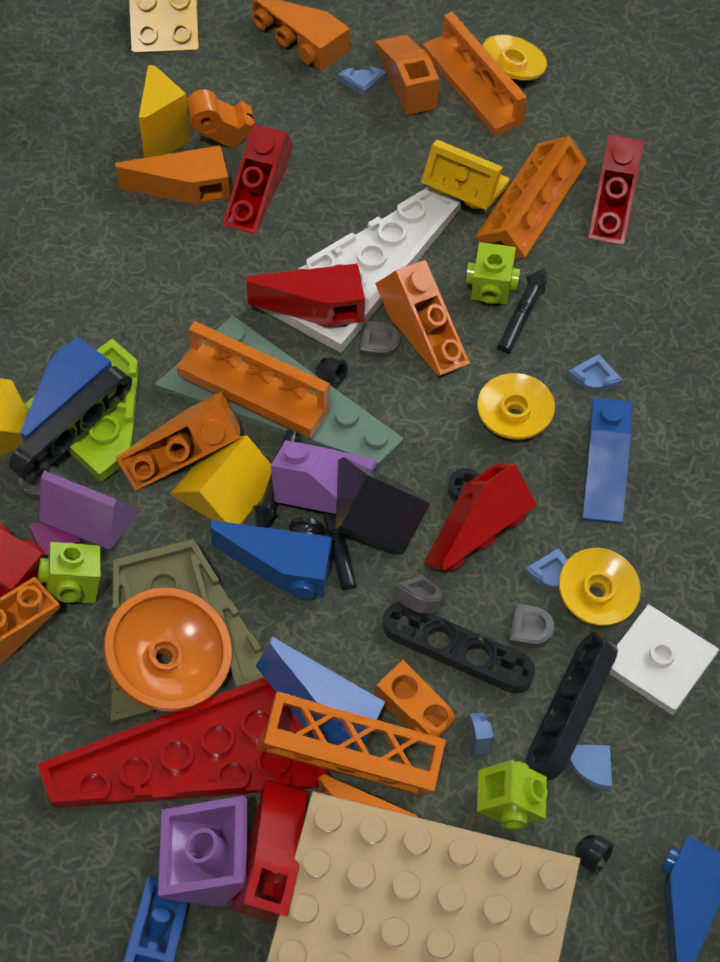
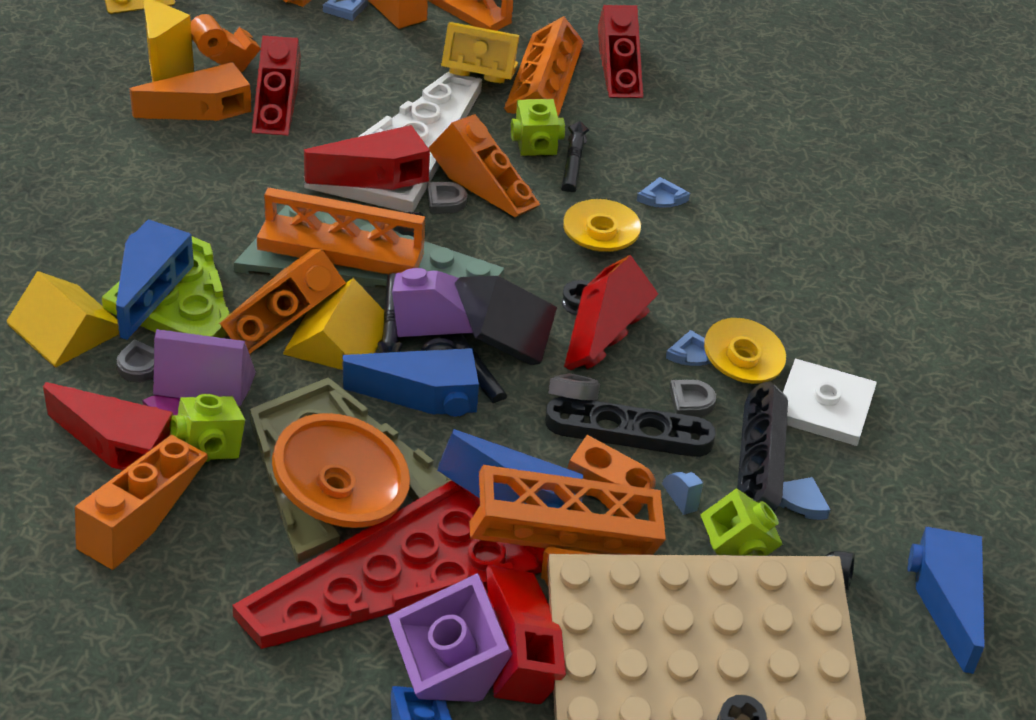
camera: 20 degrees left, 15 degrees down
(70, 423) = (161, 299): black beam -> none
(607, 460) = (705, 251): blue slope -> none

